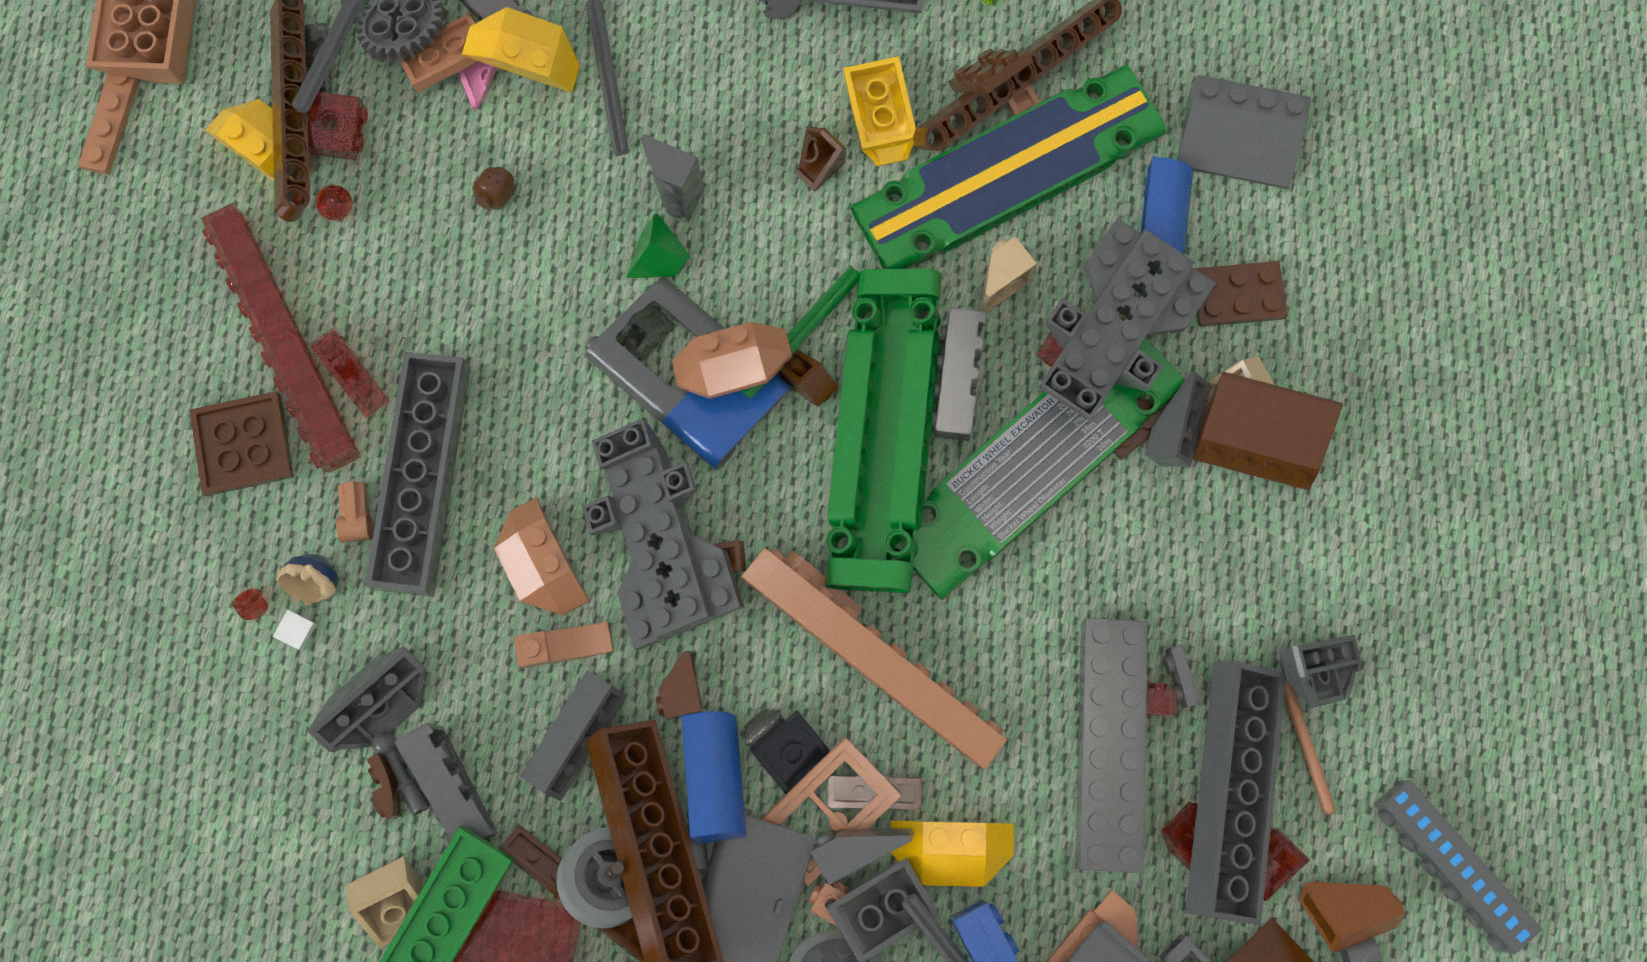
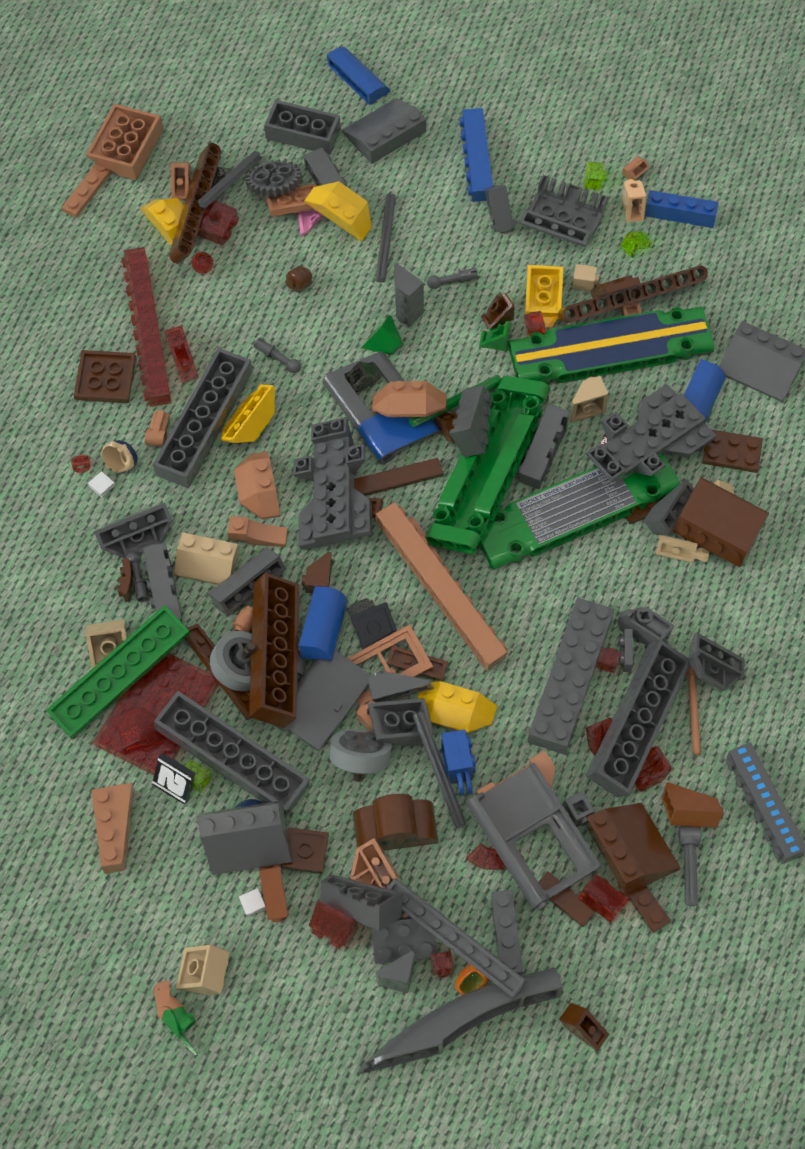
camera: 15 degrees right, 15 degrees down
(252, 63) = (180, 179): none -> nougat slope
(491, 453) = (251, 416): none -> yellow wedge
(498, 715) = (205, 559): none -> tan slope
(531, 338) = (292, 365): none -> dark grey pin
(589, 802) = (244, 620): none -> nougat brick
(706, 132) = (434, 281): none -> dark grey pin
(749, 485) = (398, 477): none -> reddish brown tile
(829, 202) = (496, 338): none -> green slope
(841, 368) = (472, 421): none -> dark grey wedge
(883, 167) = (534, 323): none -> clear red brick
(935, 62) = (585, 277): none -> tan brick
(1210, 635) = (646, 625): none -> dark grey piece
(1212, 485) = (681, 549): none -> tan plate

